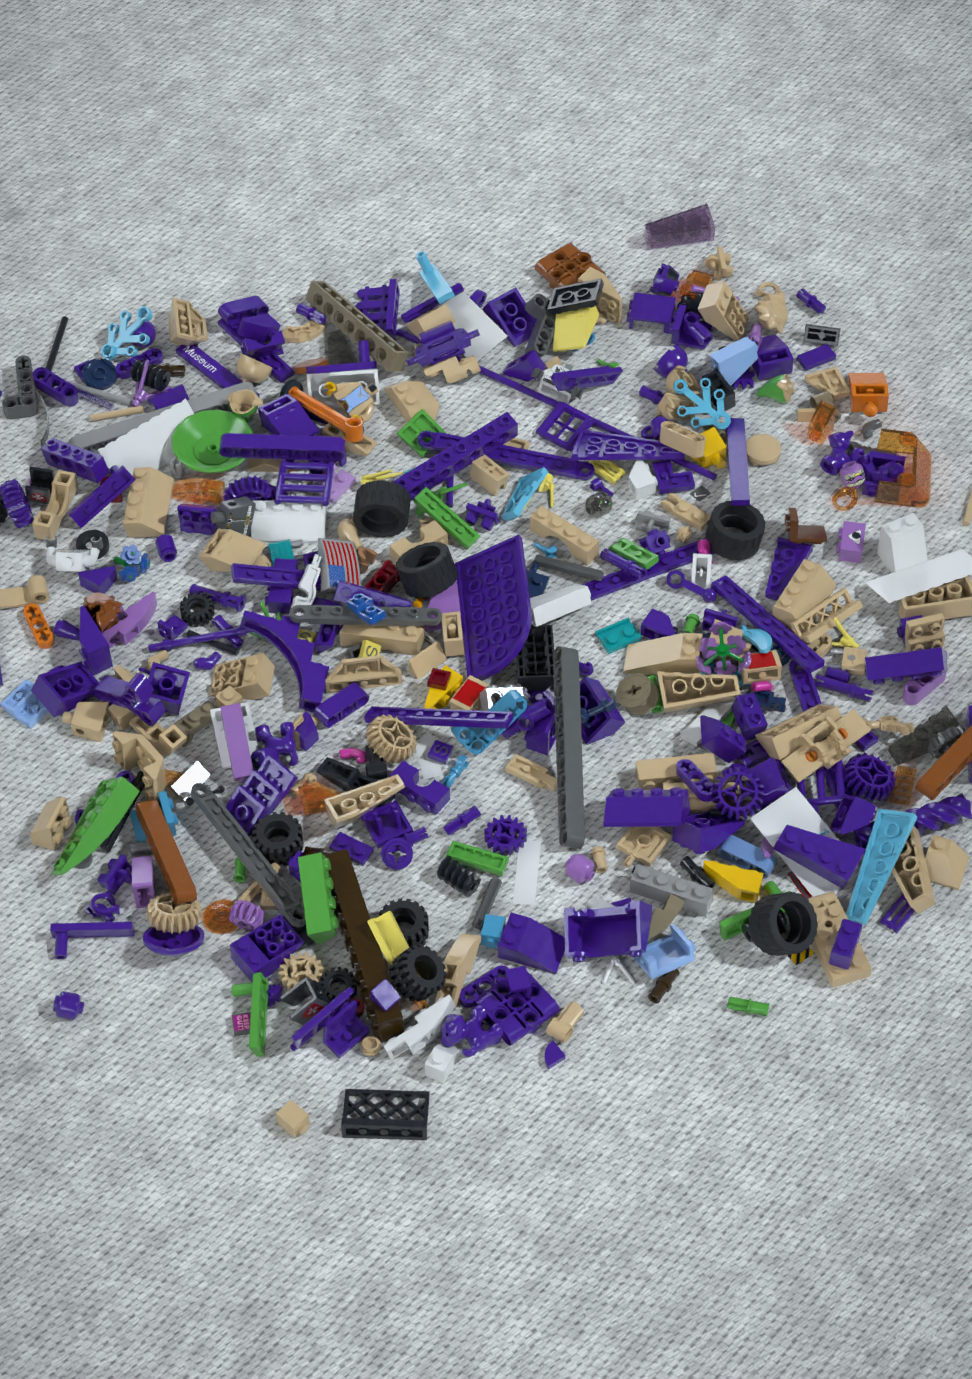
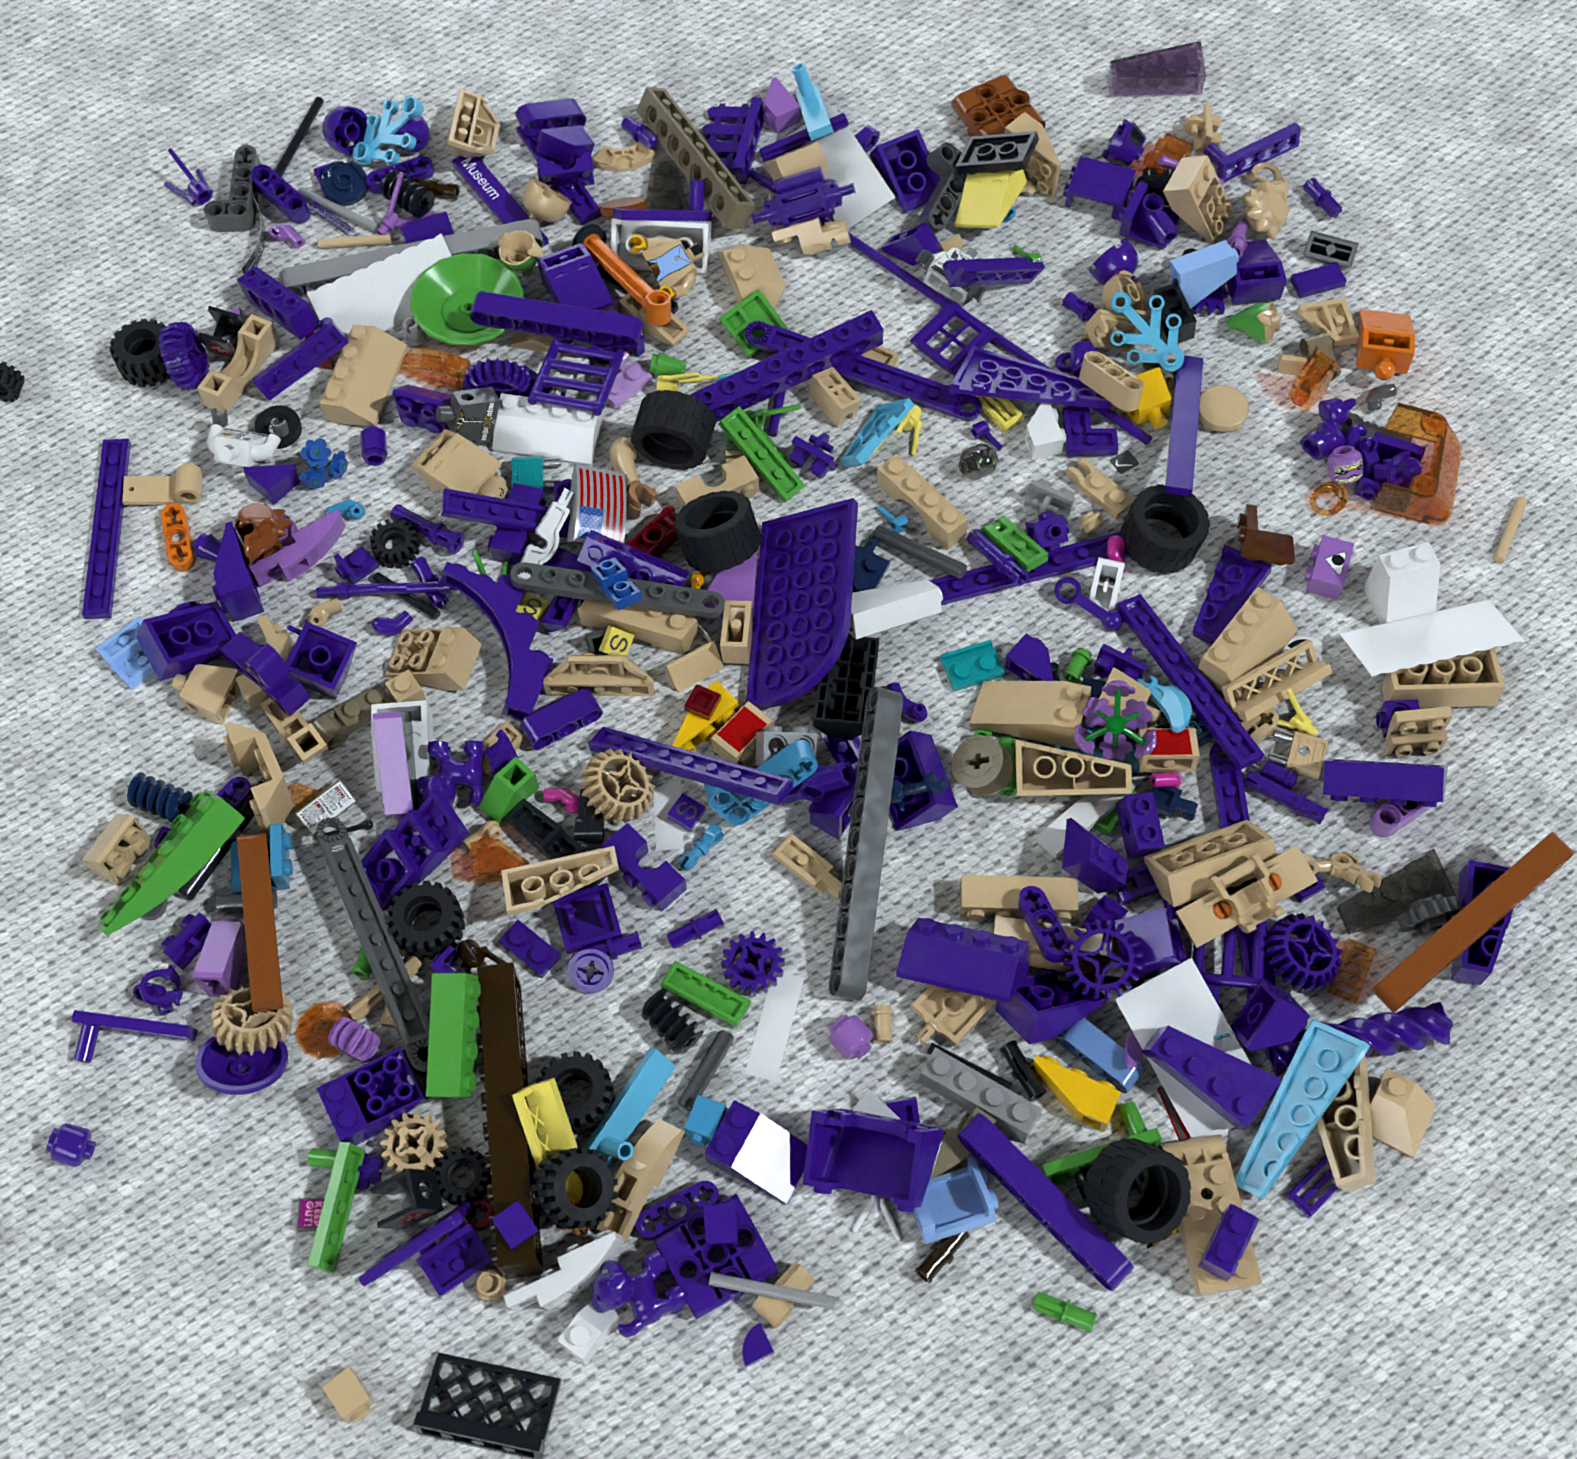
camera: 10 degrees right, 10 degrees up
(65, 413) = (286, 233): none -> medium lavender arm
(72, 792) = (157, 797): none -> dark blue piece
(91, 333) = (344, 124): none -> dark purple cylinder
(161, 592) = (349, 509): none -> dark azure arm
(316, 751) = (508, 789): none -> bright green slope
(363, 468) = (666, 365): none -> bright green cone
(410, 284) = (780, 107): none -> medium lavender slope
(444, 925) = (630, 1107): none -> medium azure piece
(555, 1016) = (772, 1290): none -> light grey bar
(725, 942) = (1045, 1202): none -> dark purple beam
(757, 277) = (1258, 152): none -> dark purple piece

